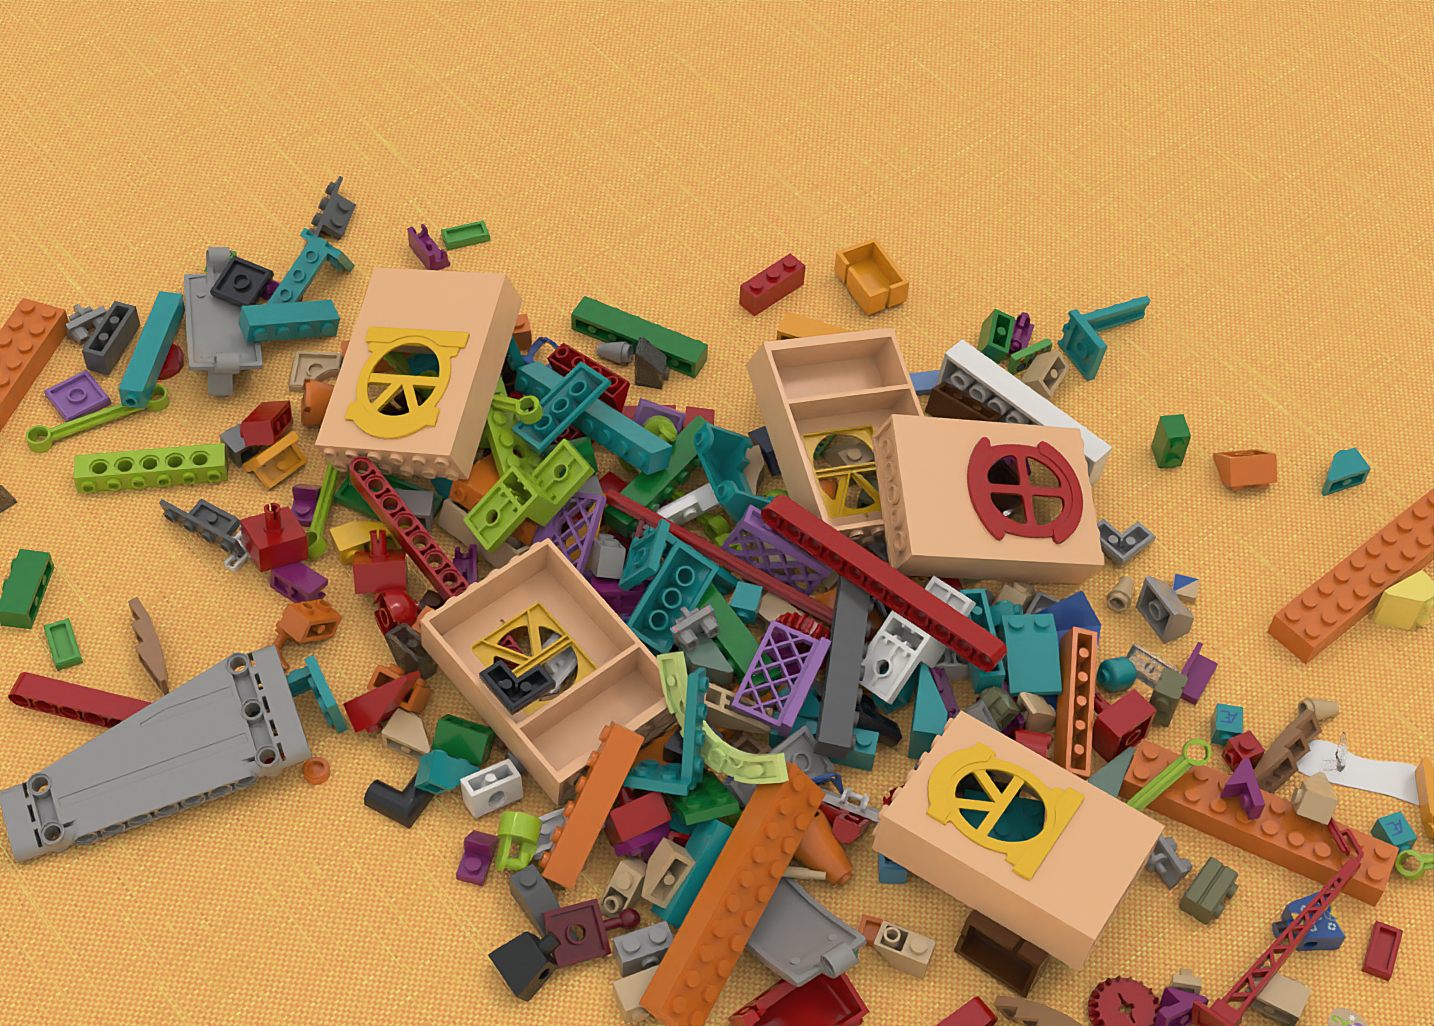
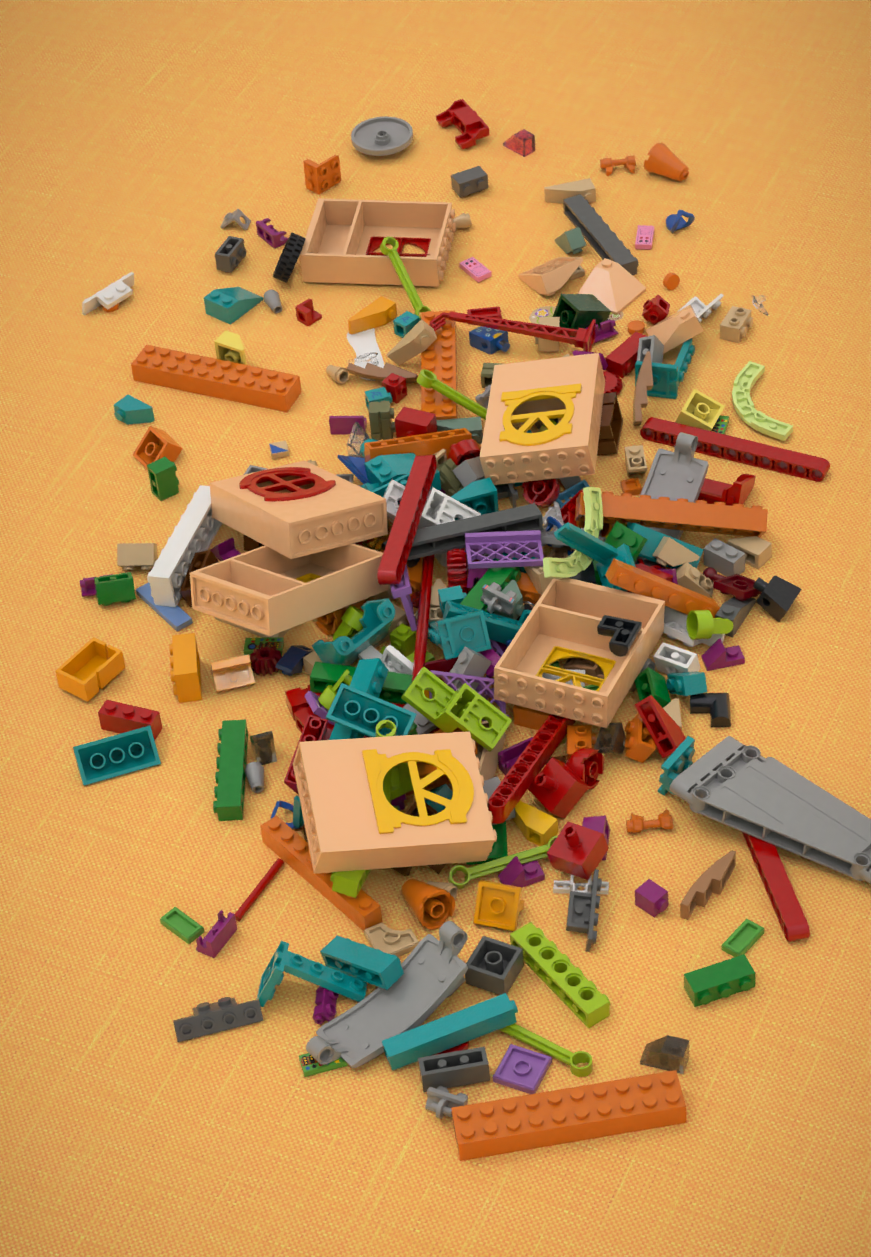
camera: 110 degrees left, 10 degrees down
(175, 588) = (651, 898): none -> magenta brick
(200, 416) = (494, 965): none -> dark grey brick
(236, 446) = (500, 930): flat silver brick -> none
(241, 282) = (339, 1016): black tile -> none
(266, 423) = (479, 909): red brick -> none
(310, 620) = (626, 802): orange brick -> none
(724, 260) = (116, 755): none -> teal slope
(1022, 359) = (112, 567): bright green tile -> none
(1080, 337) = (88, 548): teal bracket -> none
(1163, 610) = (310, 444): light grey slope -> none
(1244, 784) = (432, 361): magenta slope -> none

